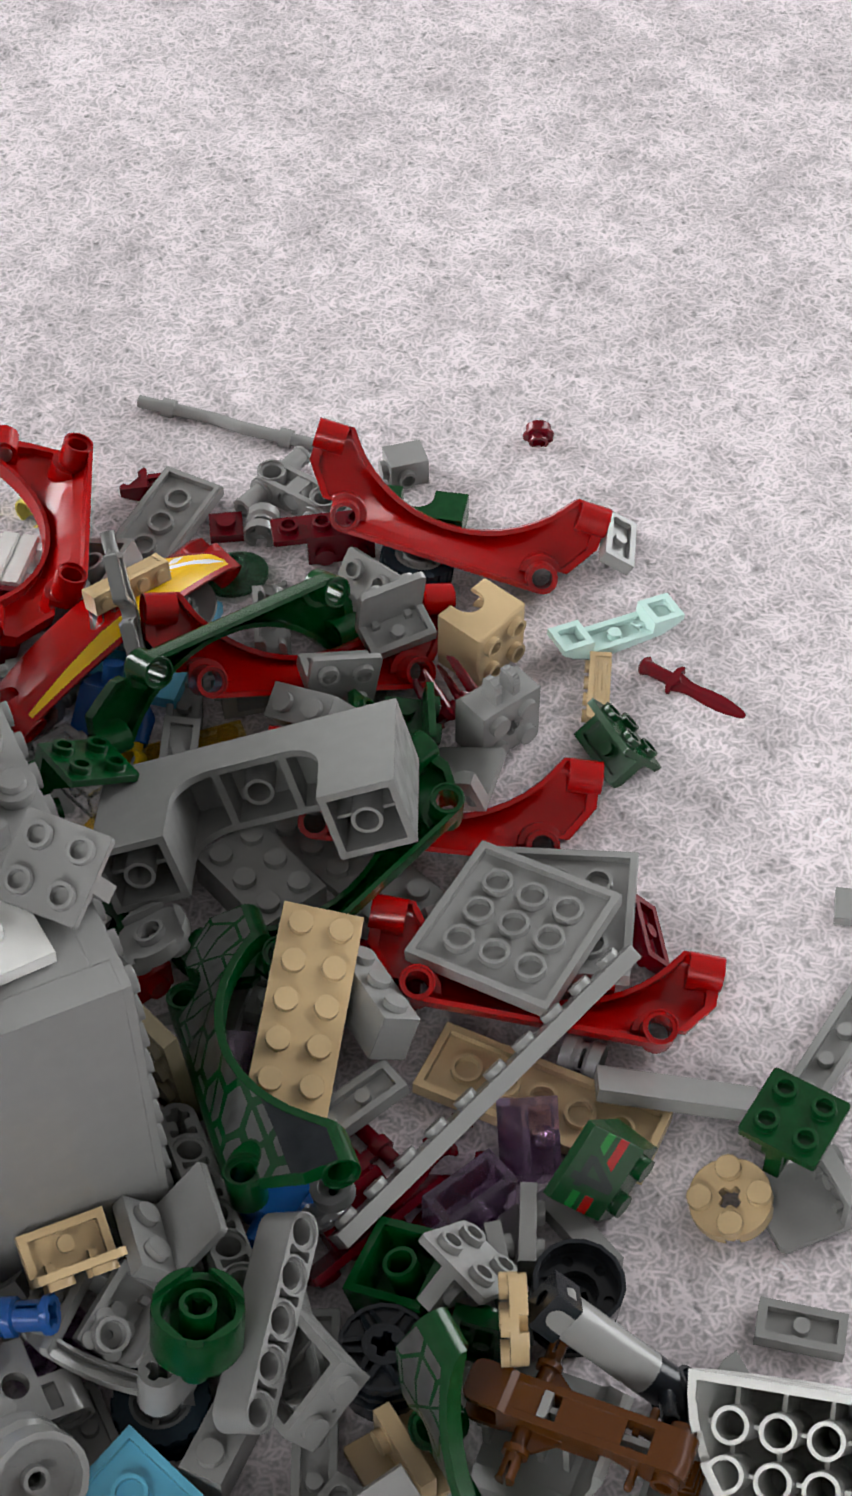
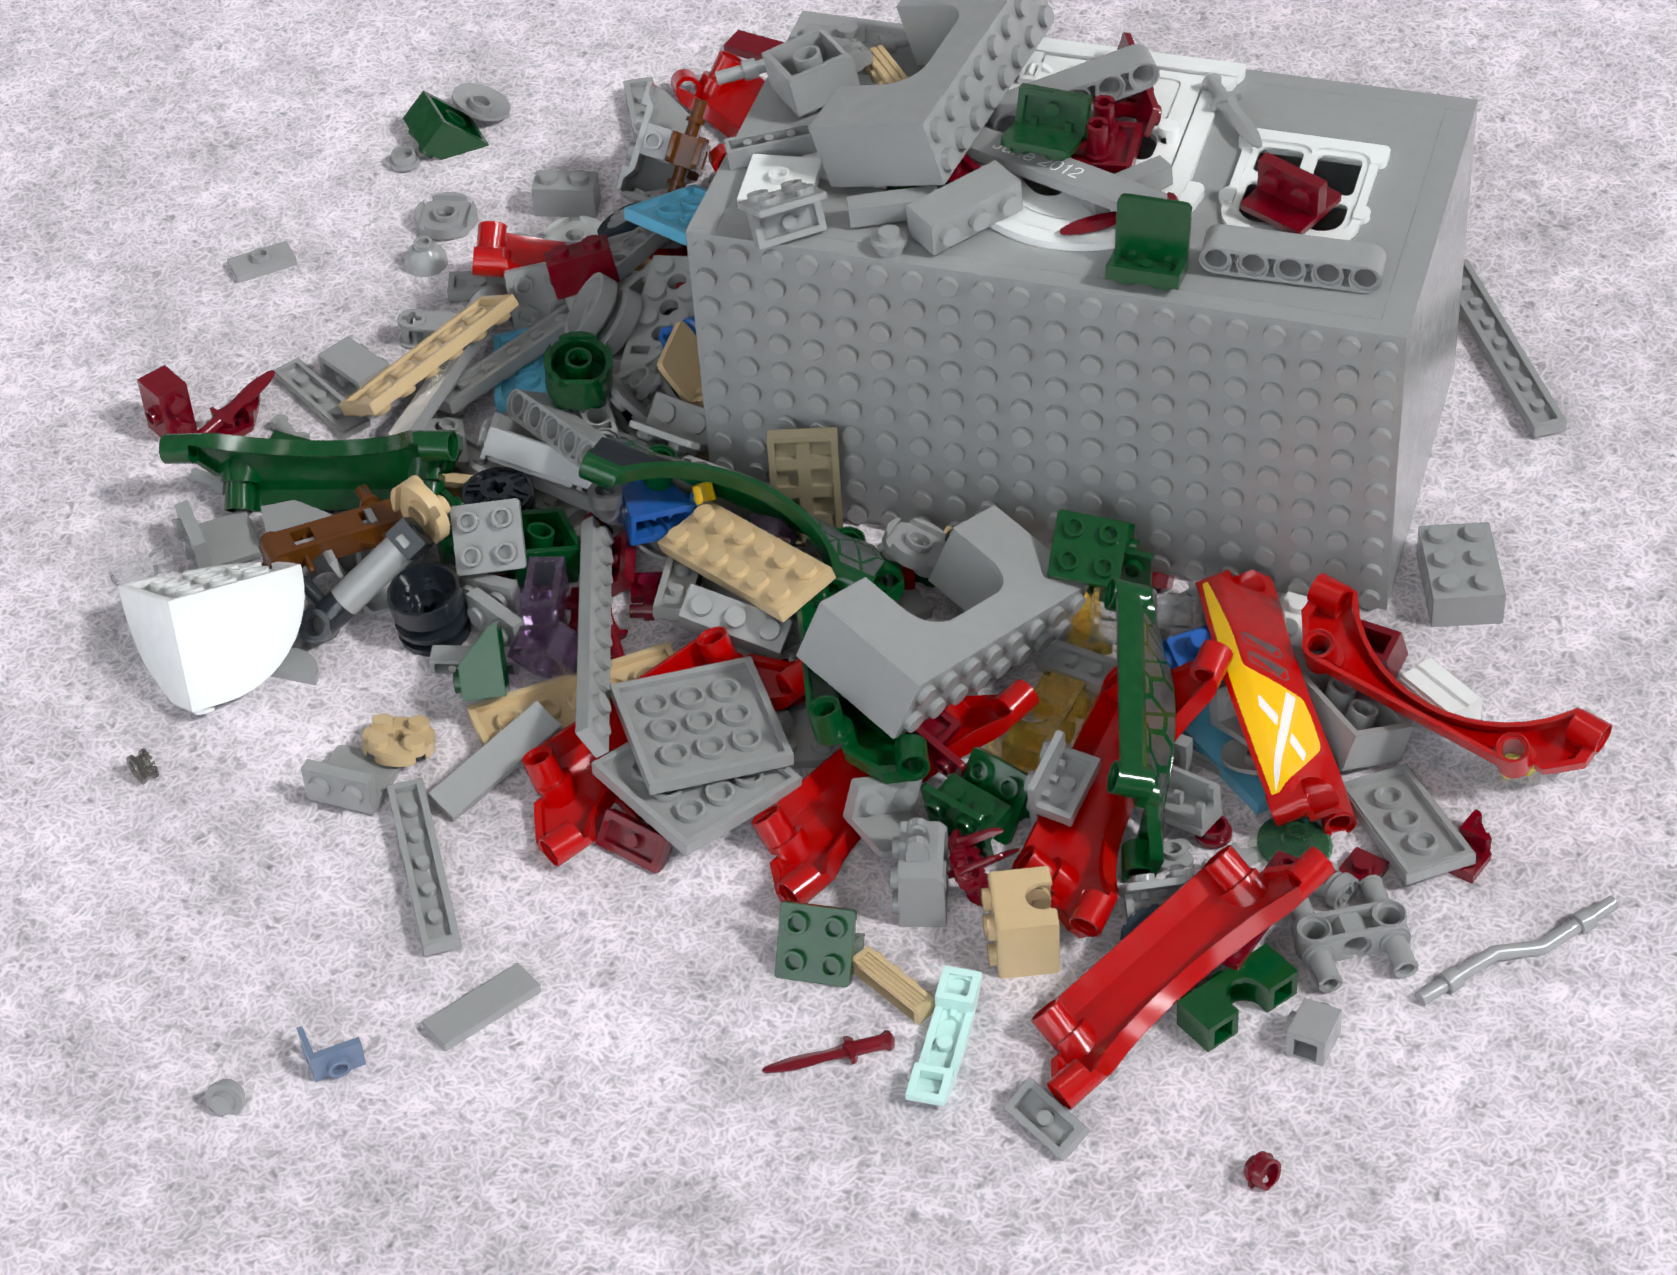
camera: 135 degrees right, 5 degrees down
(122, 593) = (1237, 631): light grey piece -> none
(142, 578) = (1267, 667): tan piece -> none
(296, 704) = (1024, 728): light grey brick -> none
(393, 616) = (1085, 849): light grey bracket -> none
(792, 1122) = (390, 768): dark green bracket -> none
(801, 1329) = (286, 716): light grey plate -> none

